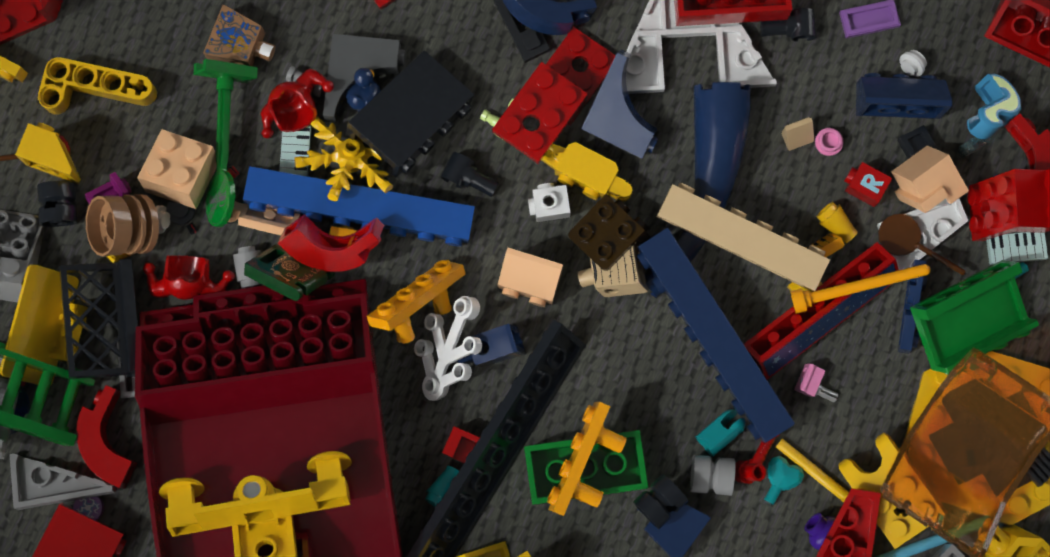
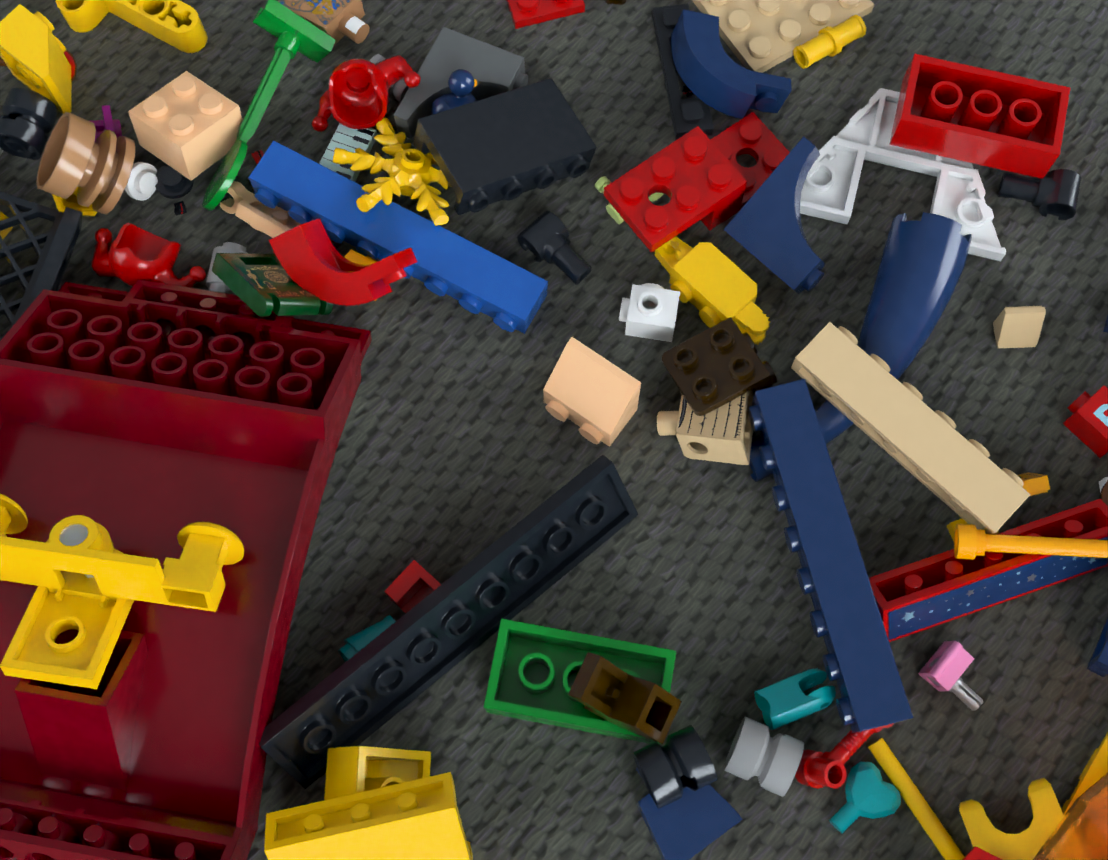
camera: 20 degrees right, 10 degrees down
(429, 286) = (414, 364): light orange plate -> none
(437, 381) = (416, 495): white plant -> none
(503, 344) = (508, 470): dark blue torso -> none
(572, 469) = (556, 673): light orange plate -> none
(618, 472) = (624, 699): none -> dark brown brick
(829, 141) = (1058, 351): bright pink plate -> none
(836, 221) = (1042, 456): yellow cone -> none

